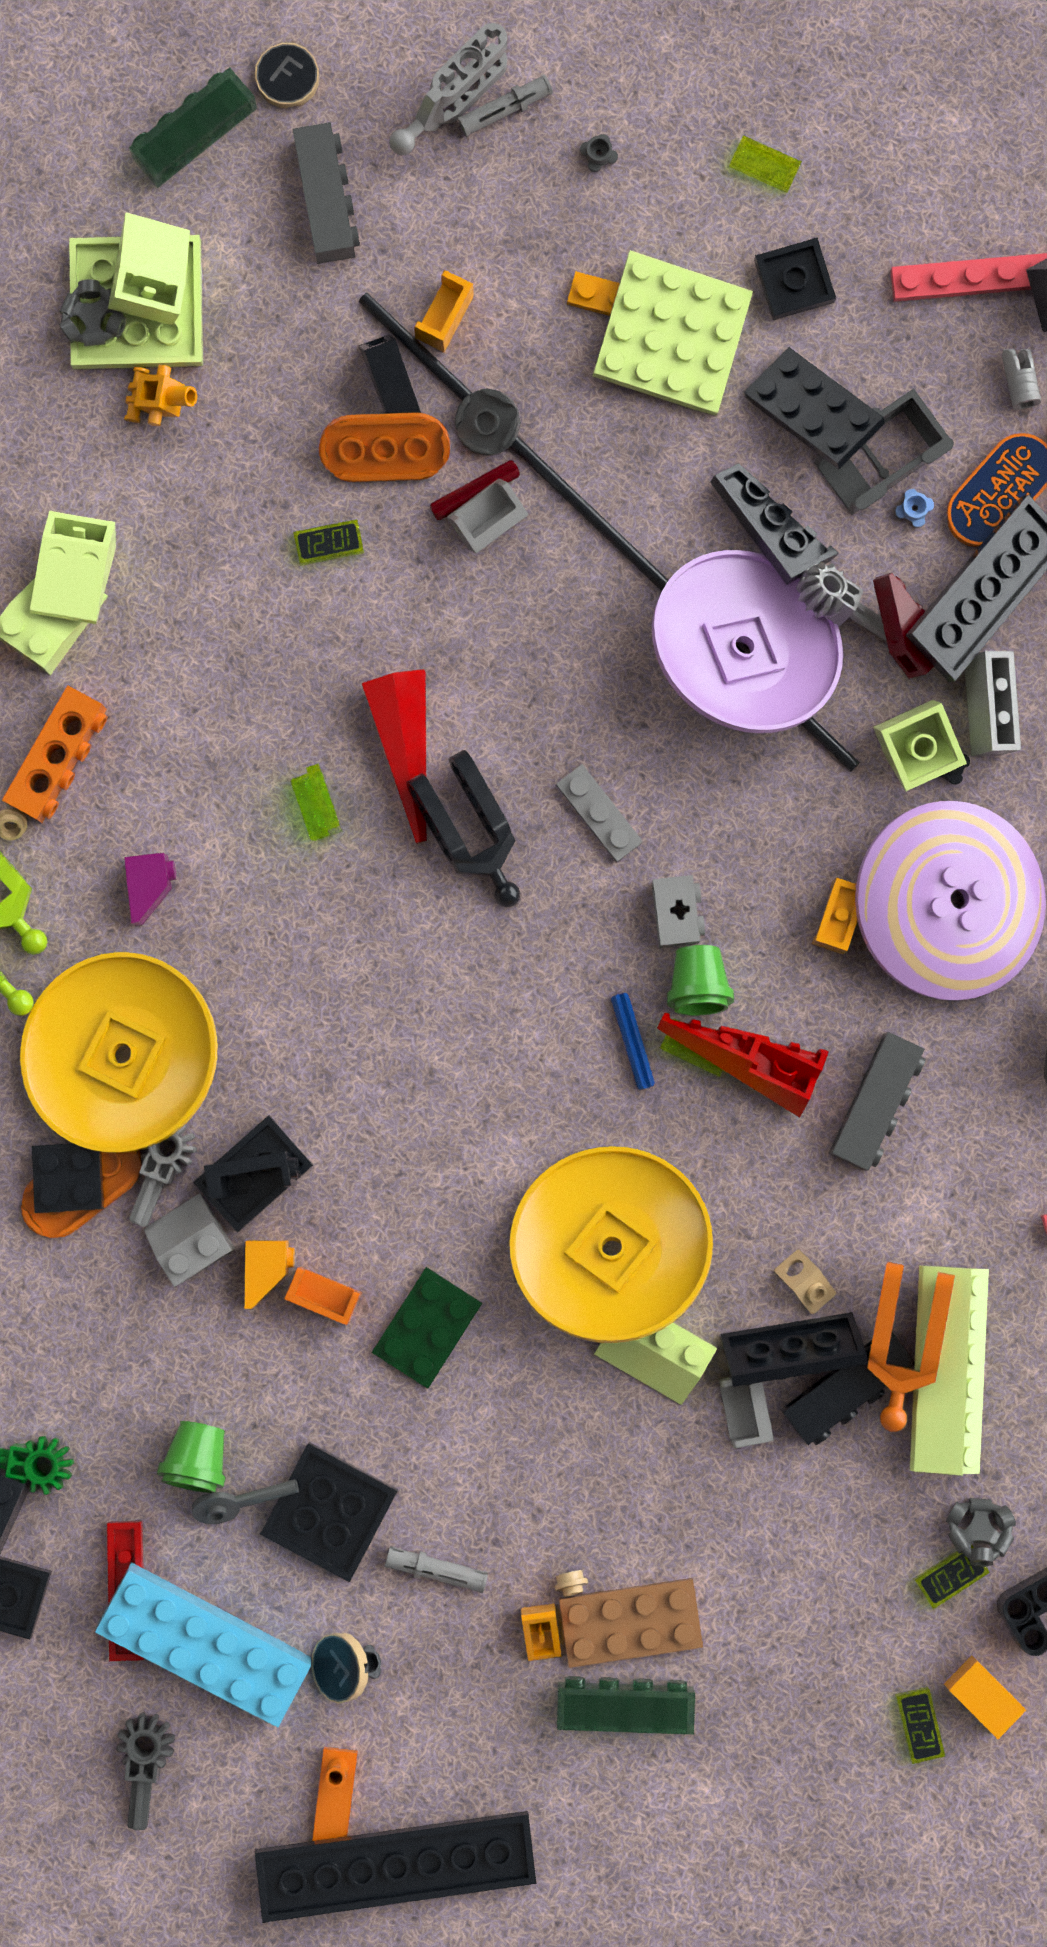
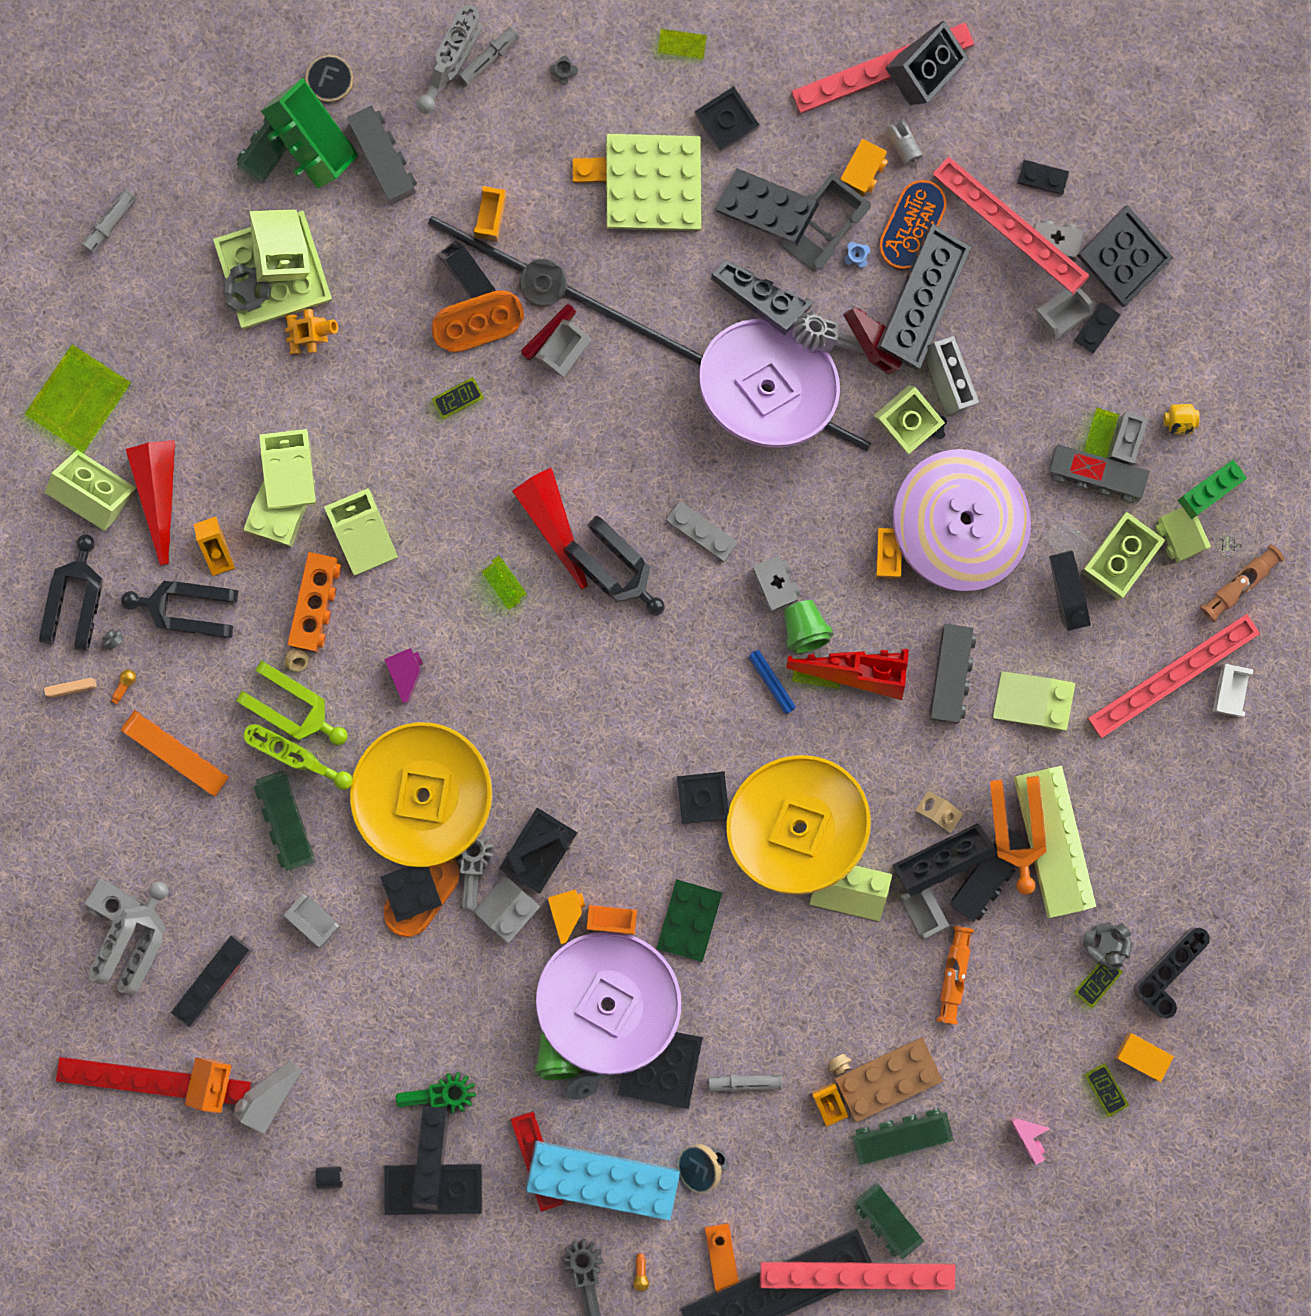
camera: 15 degrees left, 0 degrees up
(146, 679) = (361, 531): none -> yellowish green slope
(216, 1795) = (641, 1281): none -> piece
(236, 134) = (309, 134): none -> green piece
(295, 1359) = (617, 970): none -> lavender dish
(494, 1168) = (703, 797): none -> black plate
(509, 1878) = (857, 1275): none -> coral plate
(572, 1816) = (888, 1221): none -> clear green brick
(751, 1530) = (953, 990): none -> orange piece
(796, 1752) = (1026, 1132): none -> bright pink slope
(959, 393) = (864, 166): none -> light orange brick
(977, 1171) = (1034, 701): none -> yellowish green slope

